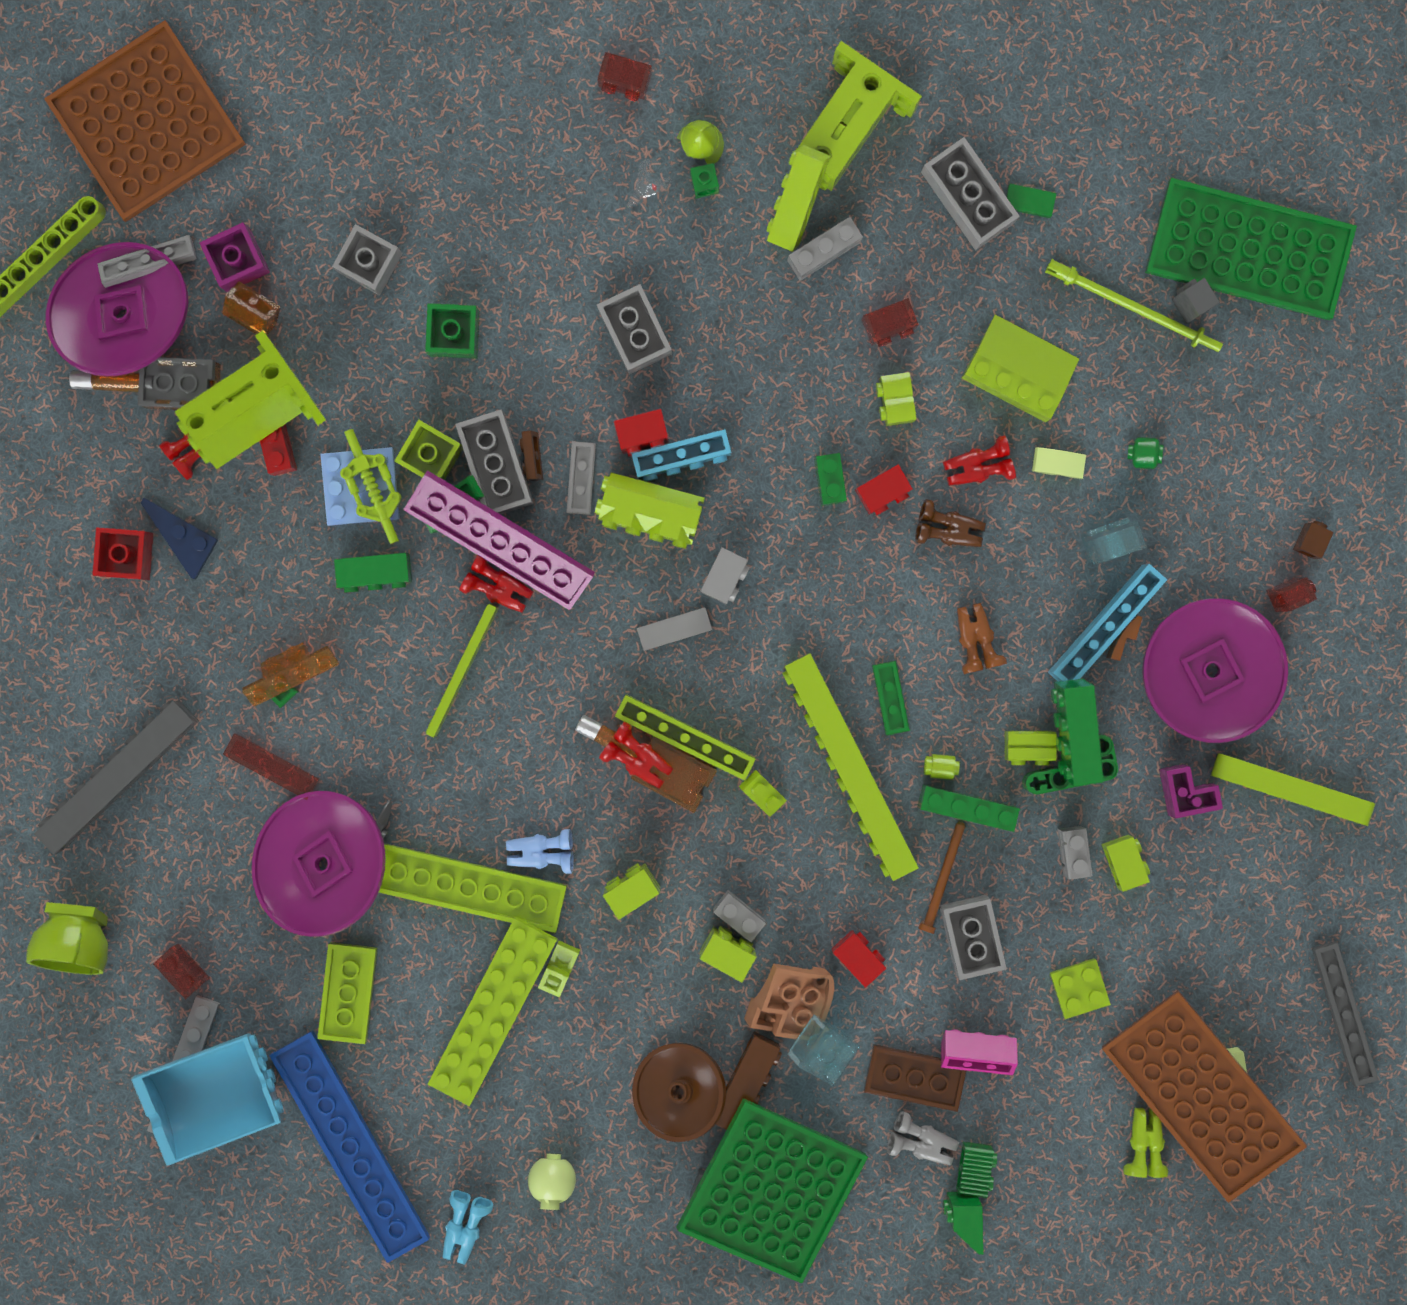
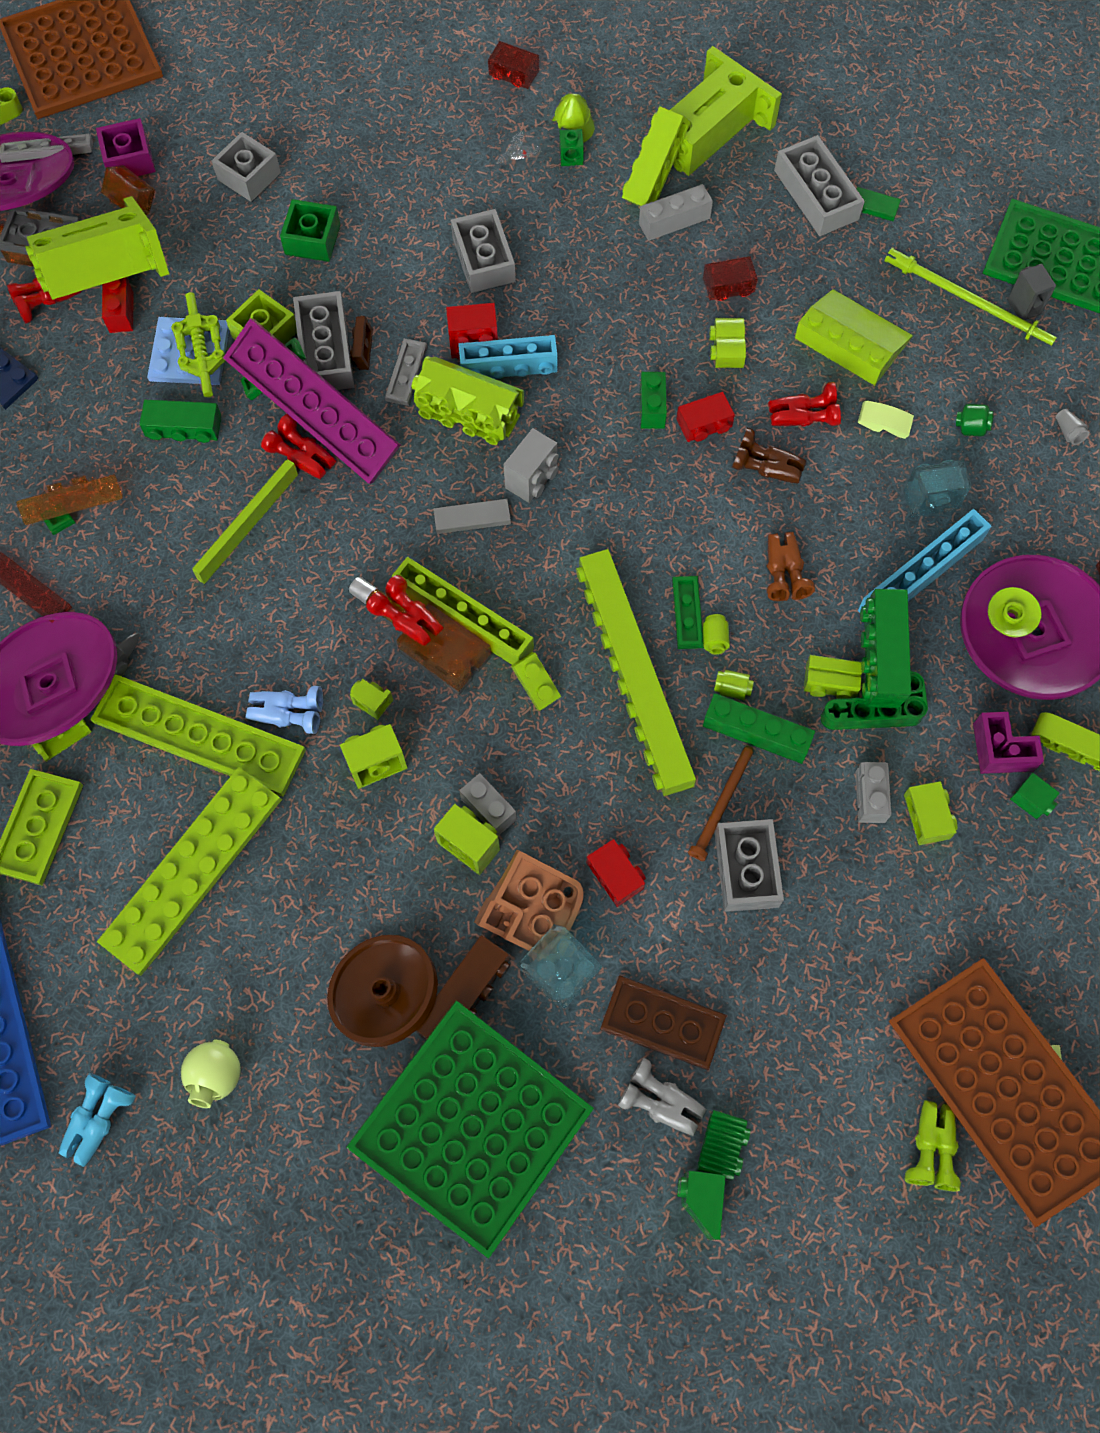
camera: 10 degrees right, 20 degrees down
(559, 969) = (277, 837): lime slope -> none
(615, 830) = (371, 698): none -> lime brick
(919, 719) = (716, 634): none -> lime brick
(979, 1052) = (742, 999): dark pink brick -> none
(1080, 988) = (867, 949): lime plate -> none
(1129, 632) = (944, 582): dark orange slope -> none
(1203, 668) = (1021, 604): none -> lime dish
(1217, 833) = (1035, 796): none -> green brick
(1240, 445) = (1072, 427): none -> light grey cone

